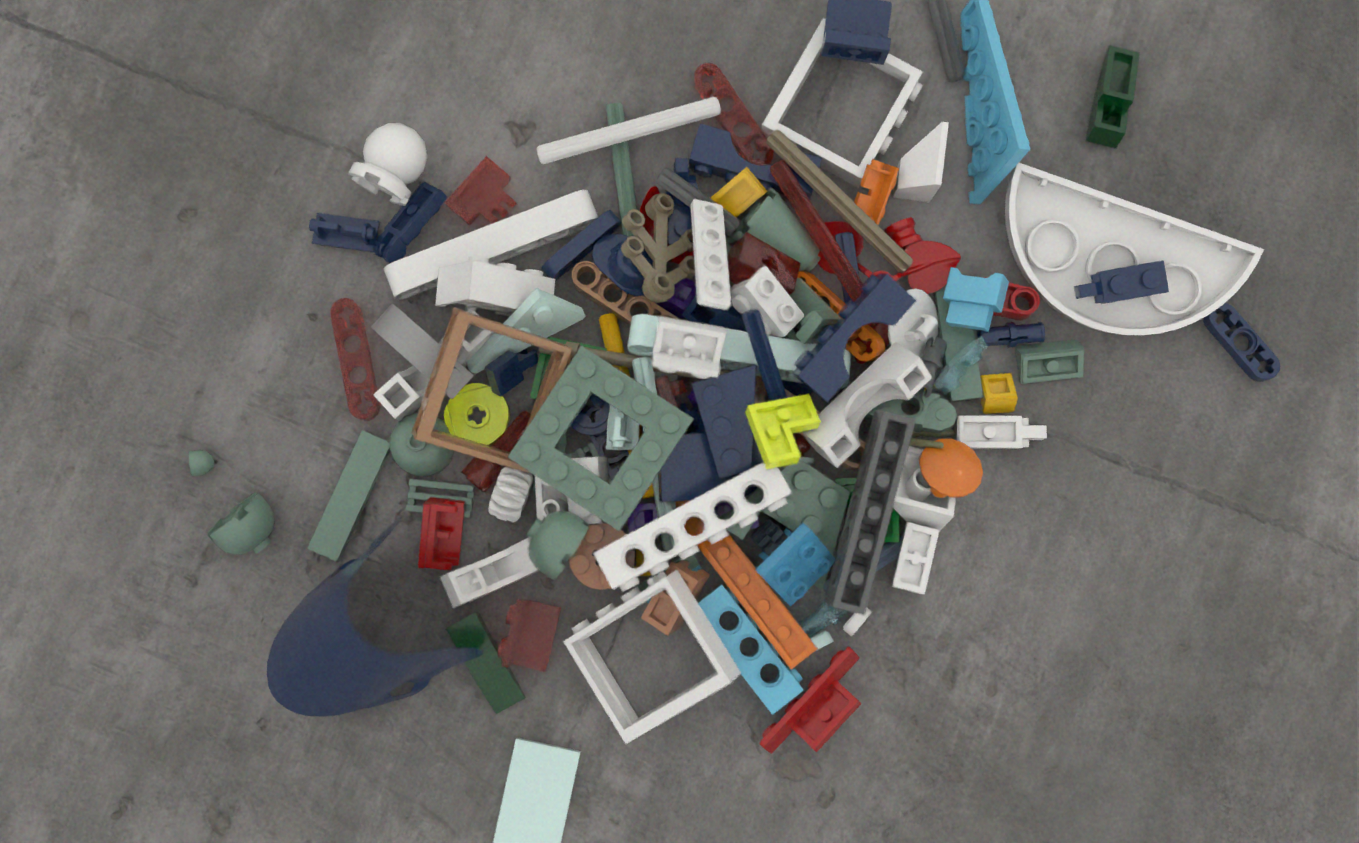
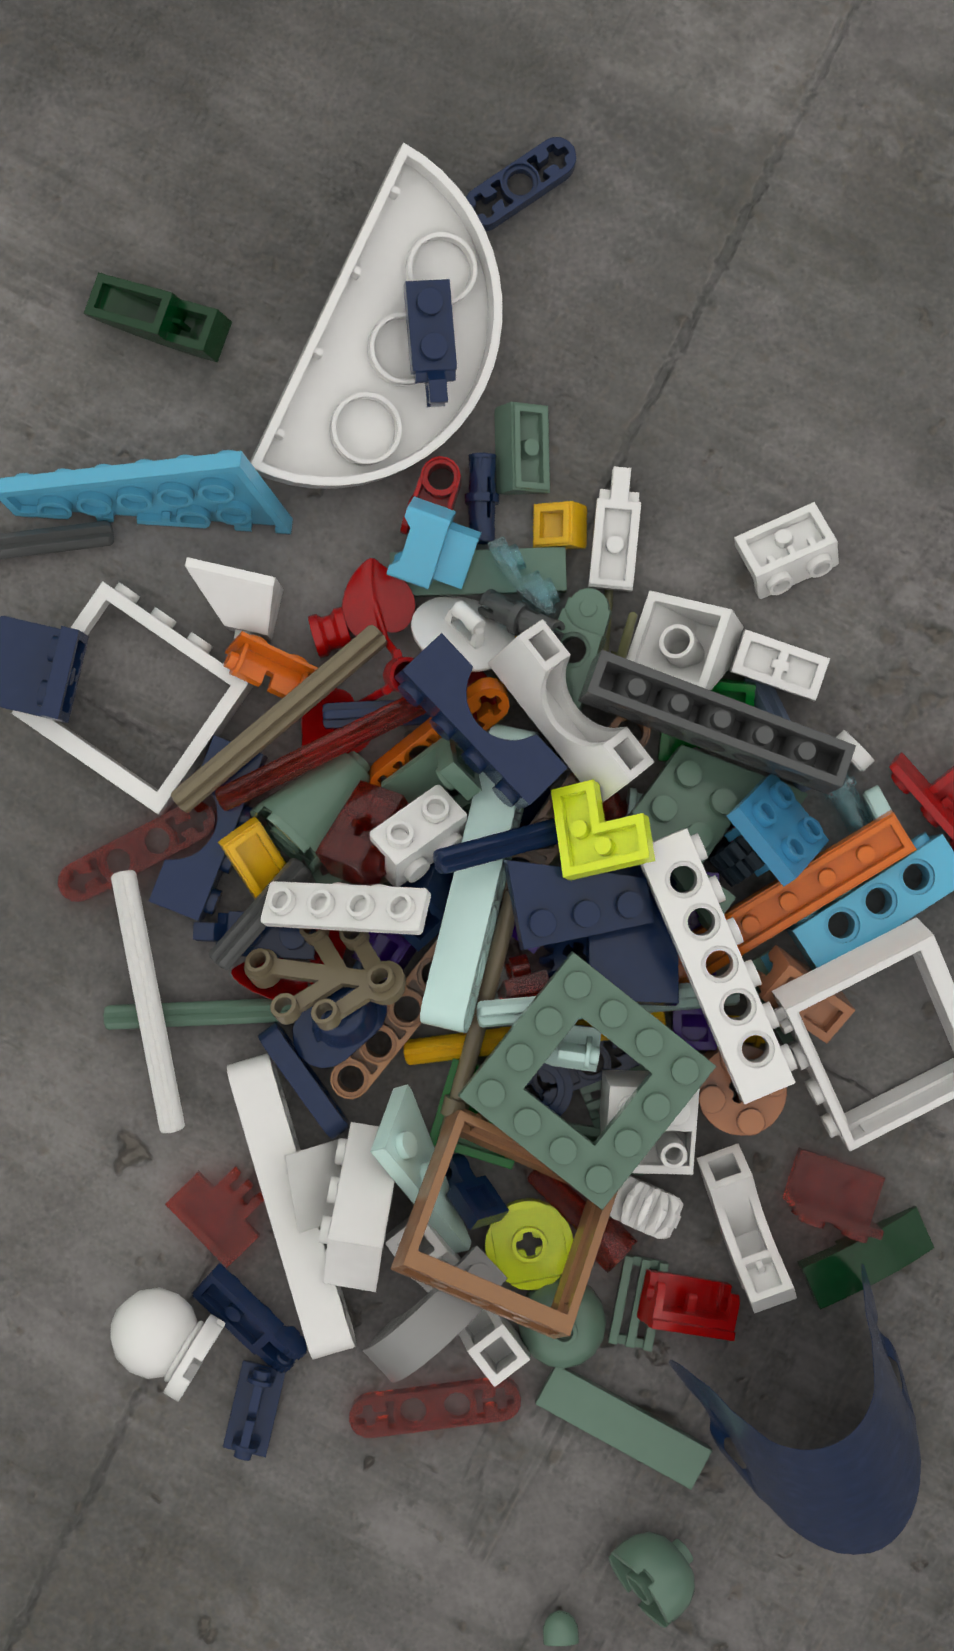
camera: 85 degrees left, 5 degrees up
(511, 249) = (309, 1183): none -> white sticker
(555, 541) = (721, 1153): sand green cylinder -> none
(688, 347) = (477, 951): white bracket -> none
(951, 469) = (667, 604): orange dish -> none
(998, 559) = (788, 550): none -> white bracket

